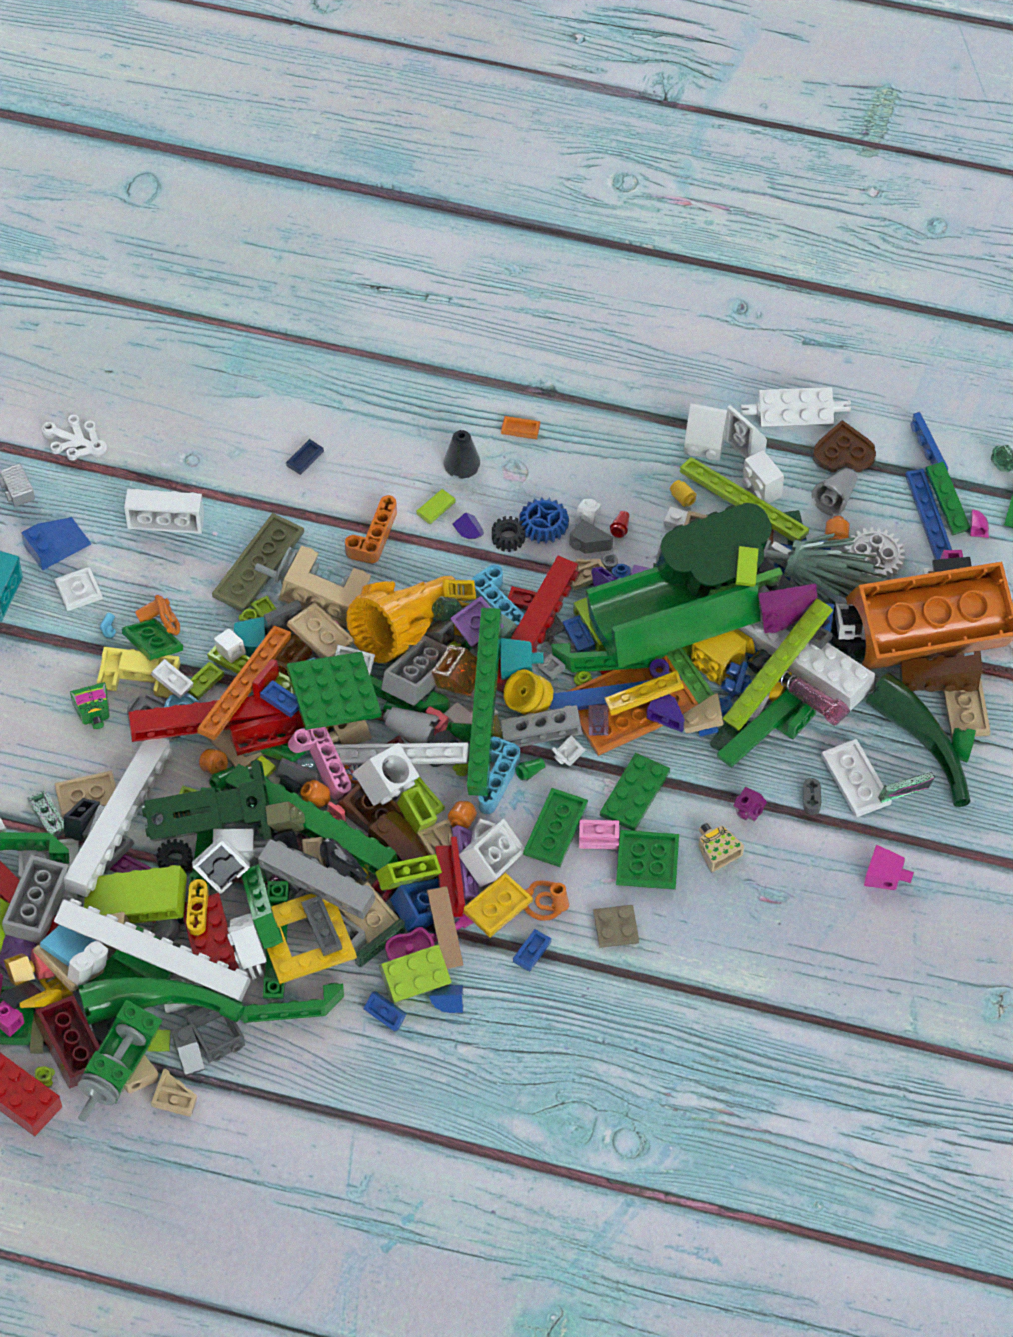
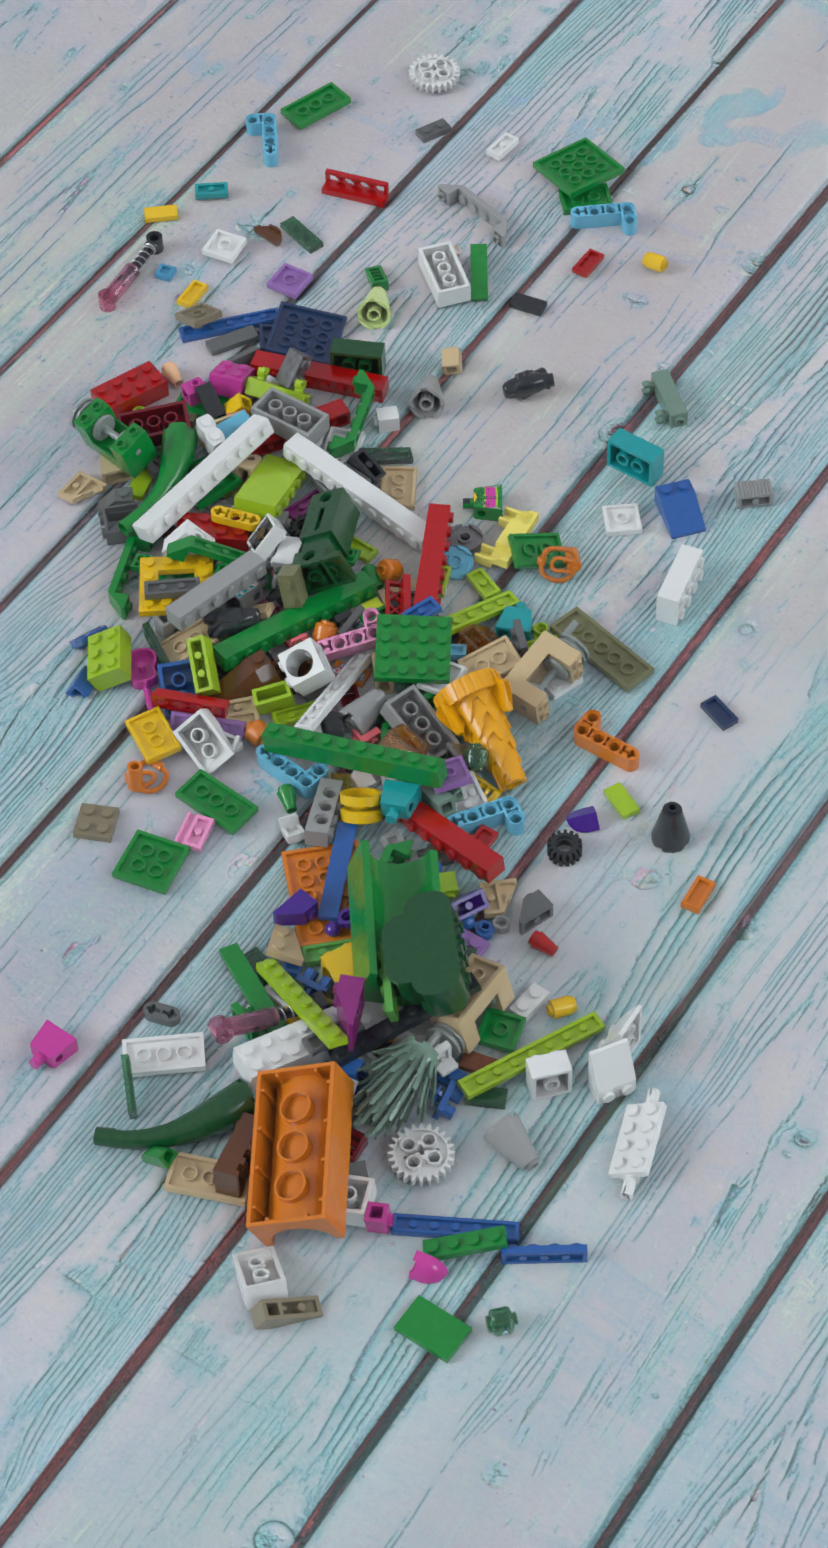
camera: 110 degrees right, 5 degrees down
(42, 999) = (195, 407): yellow slope -> none
(75, 440) = (783, 558): white plant -> none
(106, 628) = (570, 530): medium azure arm -> none
(172, 679) = (483, 551): white plate -> none
(229, 645) = (501, 595): white panel -> none
(242, 684) = (450, 590): orange plate -> none
(269, 673) = (449, 605): red tile -> none
(445, 926) = (142, 687): medium nougat tile -> none
(468, 588) = (506, 777): yellow slope -> none
(532, 950) = (99, 752): blue plate -> none
(547, 515) = (579, 873): blue gear -> none
(587, 511) = (569, 920): white bracket -> none
(598, 719) = (310, 853): clear purple brick -> none
(635, 791) = (230, 874): green plate -> none
(644, 693) = (318, 890): yellow tile -> none
(718, 846) = (139, 918): tan torso -> none
(746, 566) = (388, 962): lime tile -> none
(749, 804) = (169, 953): magenta brick -> none
(838, 526) = (463, 1128): orange head -> none
(843, 448) = (569, 1173): reddish brown plate -> none
(950, 564) = (360, 1201): black tile -> none

